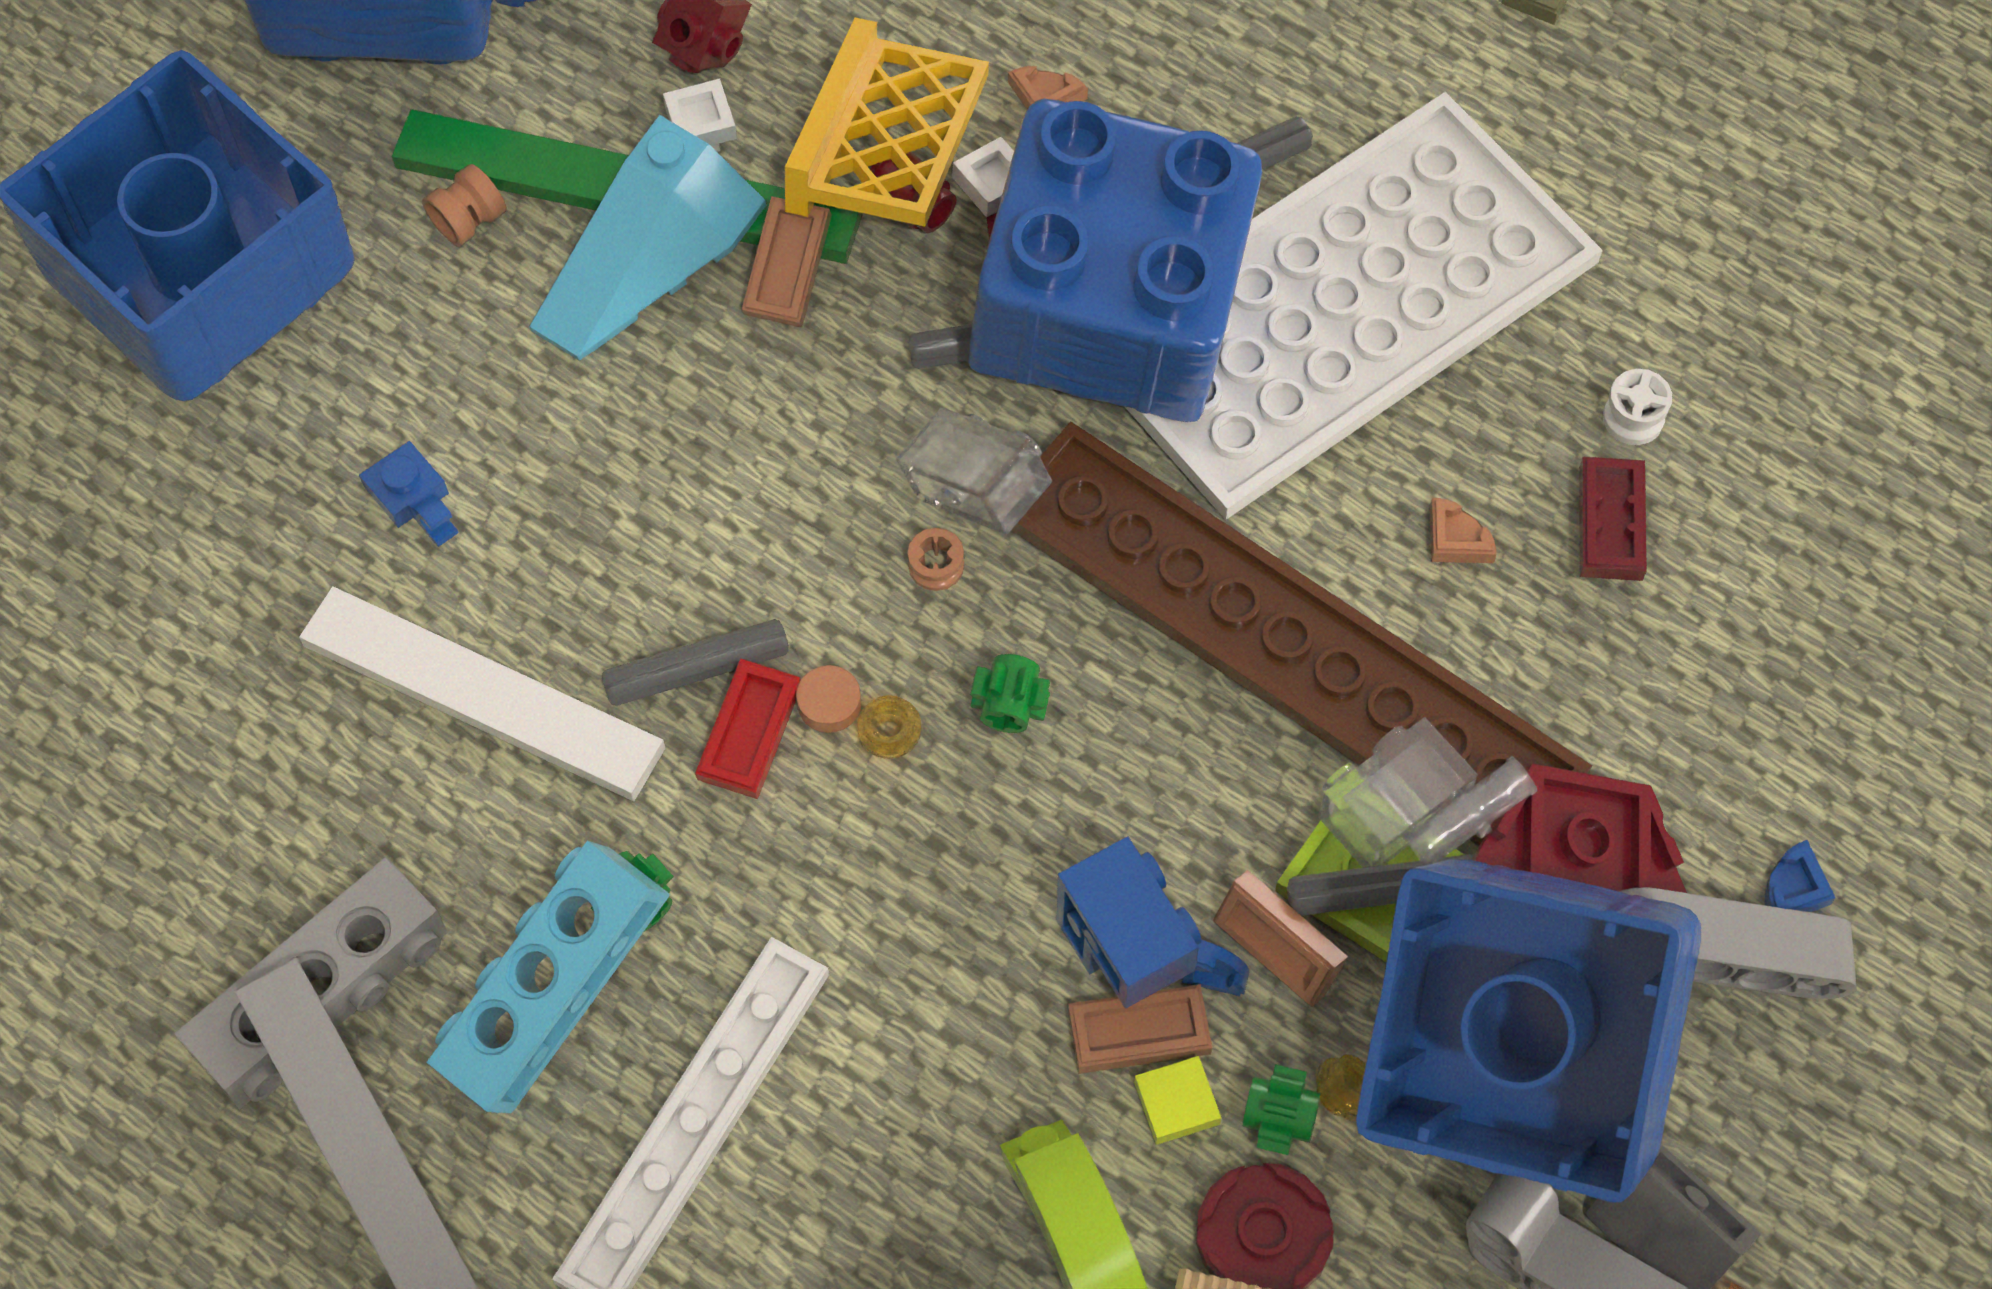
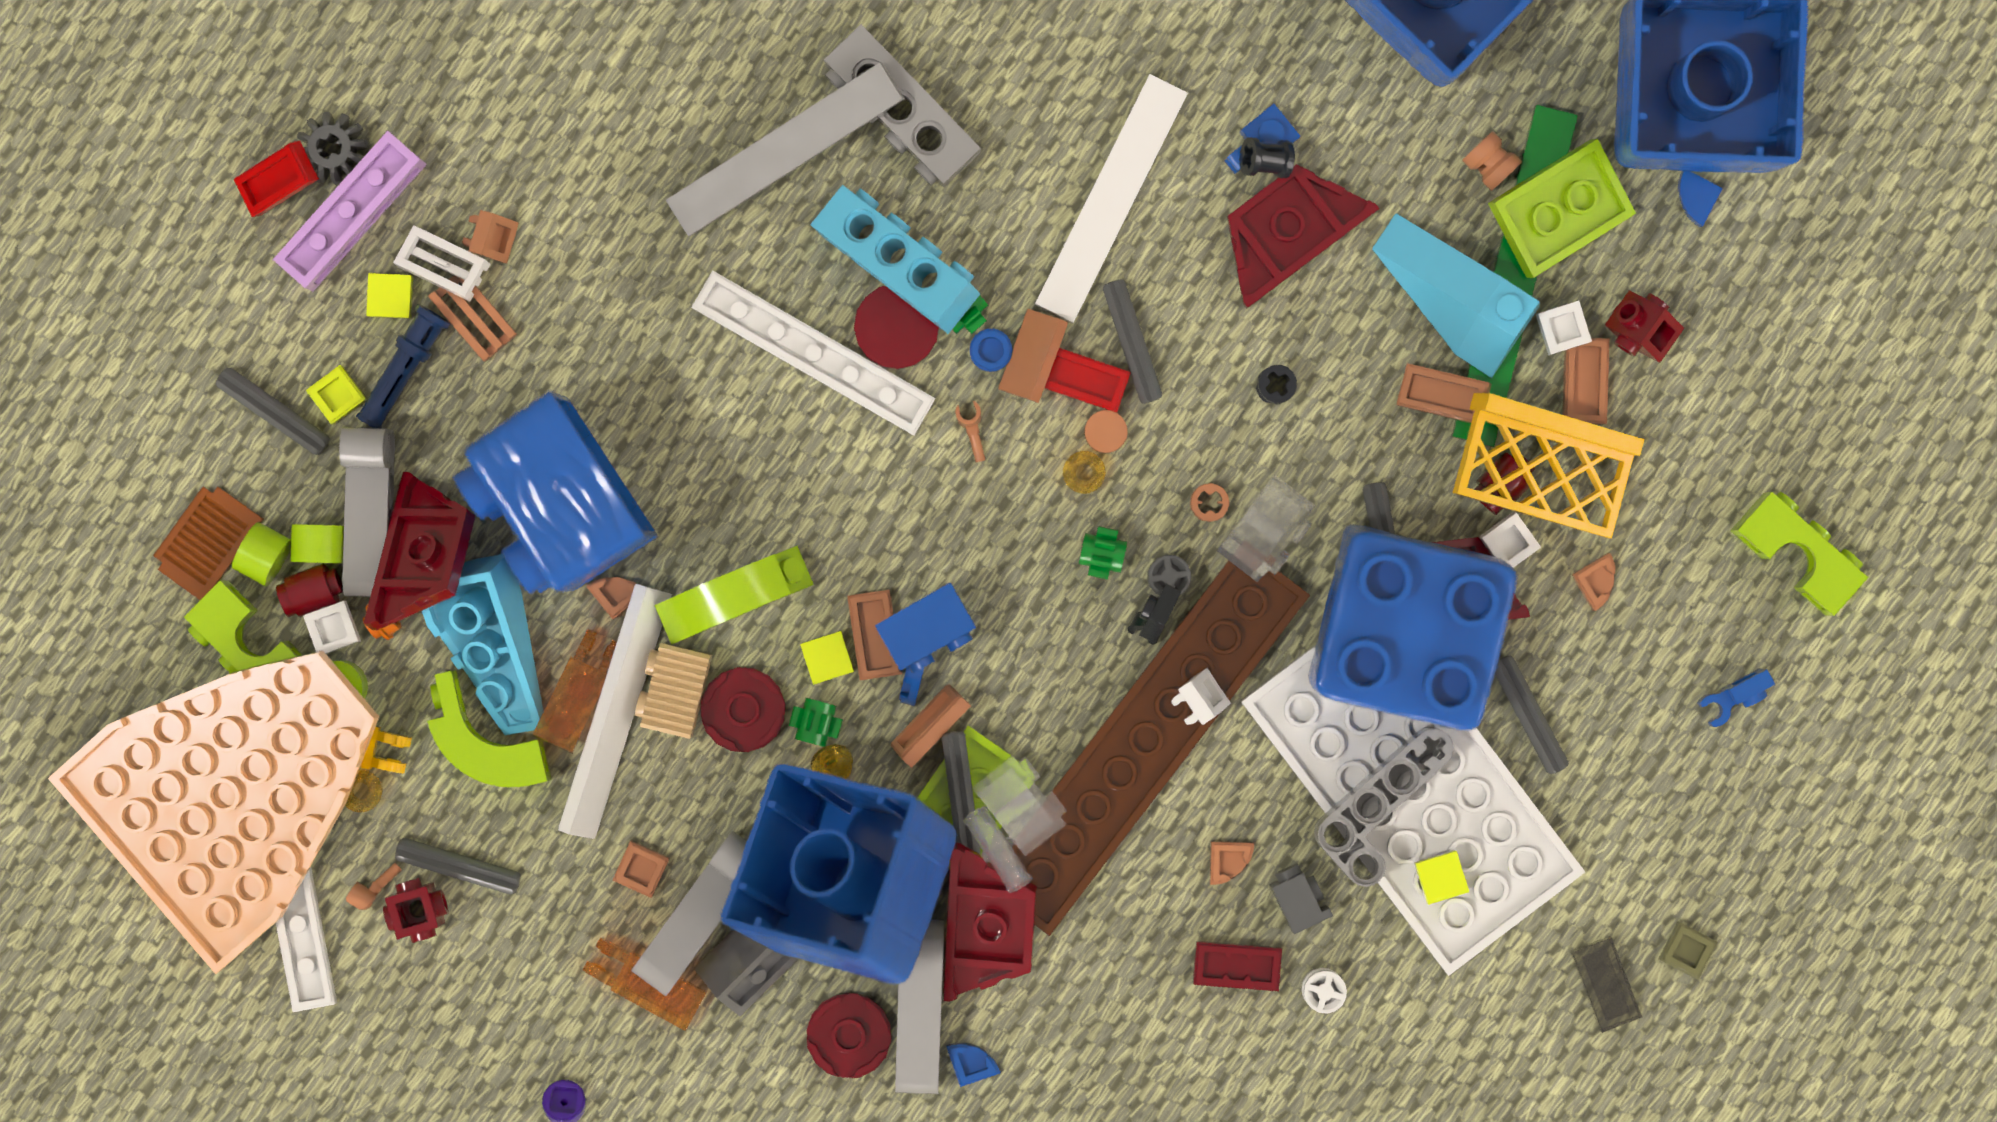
camera: 90 degrees right, 25 degrees up
(432, 474) = (1267, 157): none -> black bush
(535, 117) = (1562, 208): none -> lime plate
(542, 456) = (1289, 227): none -> dark red wing
(660, 999) = (893, 330): none -> dark red tile
(700, 860) = (990, 350): none -> blue tile
(710, 794) = (1033, 355): none -> nougat tile
(766, 466) = (1276, 371): none -> black bush
(770, 101) = (1587, 381): none -> nougat tile
(818, 886) = (973, 431): none -> nougat hand
(1044, 593) = (1175, 573): none -> dark grey wheel
(1106, 608) = (1155, 614): none -> black plate
(1222, 545) = (1203, 697): none -> white tile
(1299, 266) = (1388, 799): none -> light grey beam
(1465, 252) = (1441, 877): none -> neon yellow tile
(1511, 436) = (1299, 899): none -> dark grey brick
(1594, 78) = (1606, 984): none -> clear smoke tile
(1760, 1086) = (857, 1023): none -> dark red tile

